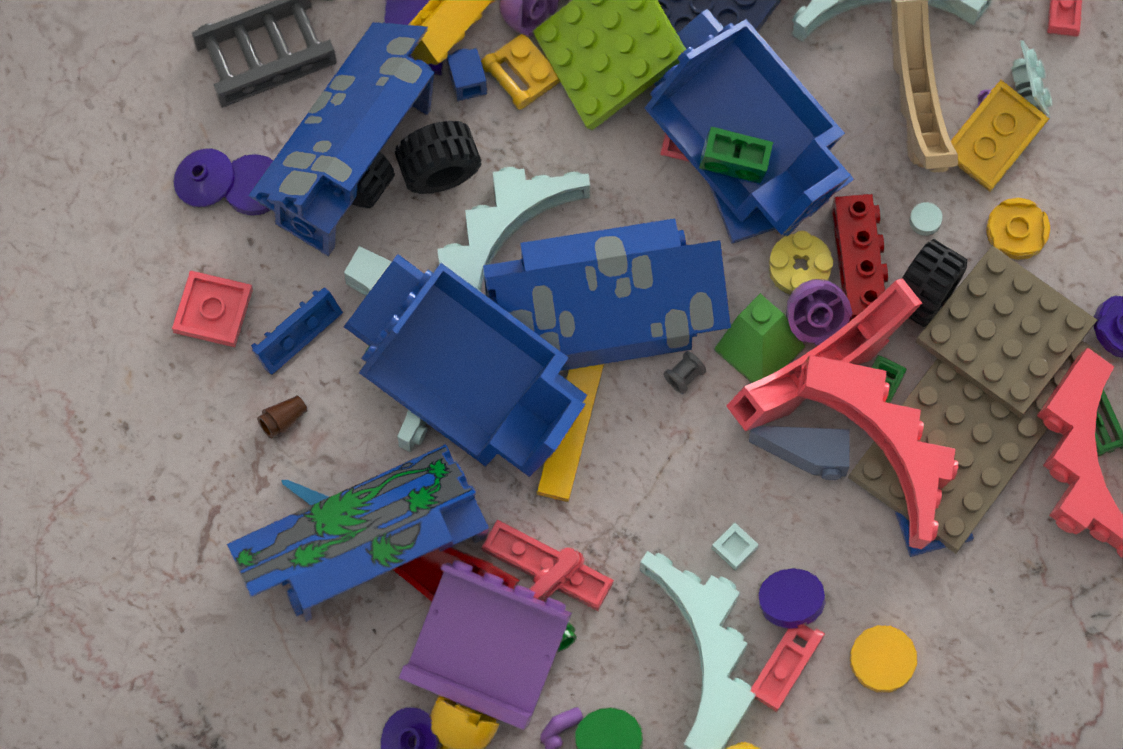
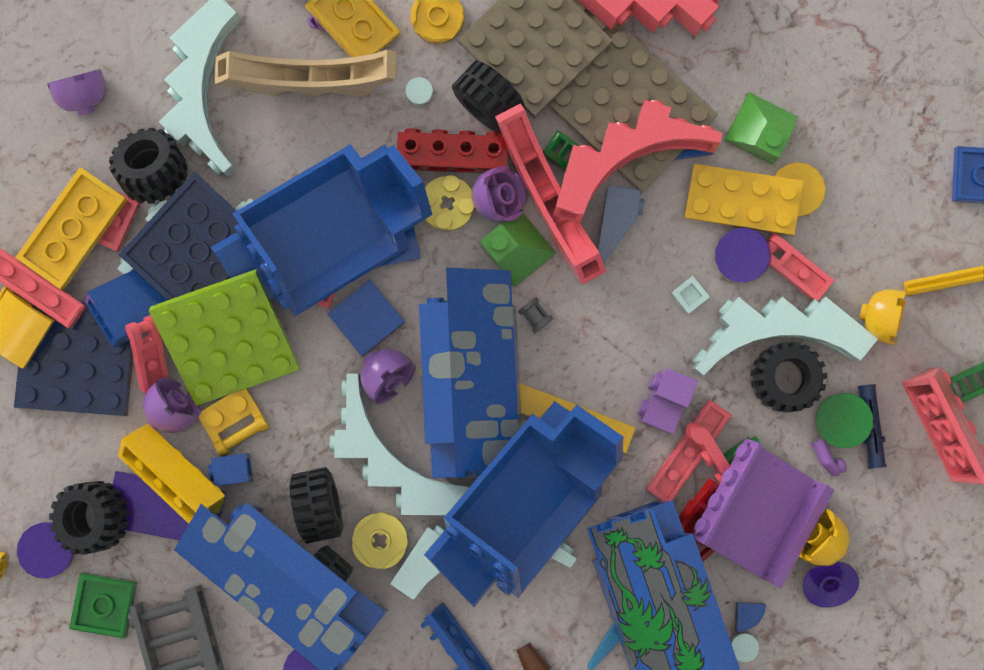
camera: 85 degrees left, 15 degrees up
(324, 653) = (745, 647): none -> light aqua tile
(362, 653) = (748, 615): none -> blue tile
(405, 219) = (378, 556): none -> light yellow plate
(590, 211) = (384, 373): none -> medium lavender cylinder
(607, 527) = (668, 398): none -> medium lavender brick
(654, 191) = (366, 318): none -> blue tile
(656, 637) = (810, 371): none -> black tyre
(735, 155) = (355, 242): green brick -> none
(859, 593) = (744, 199): none -> yellow plate
(952, 609) = (761, 129): none -> bright green slope

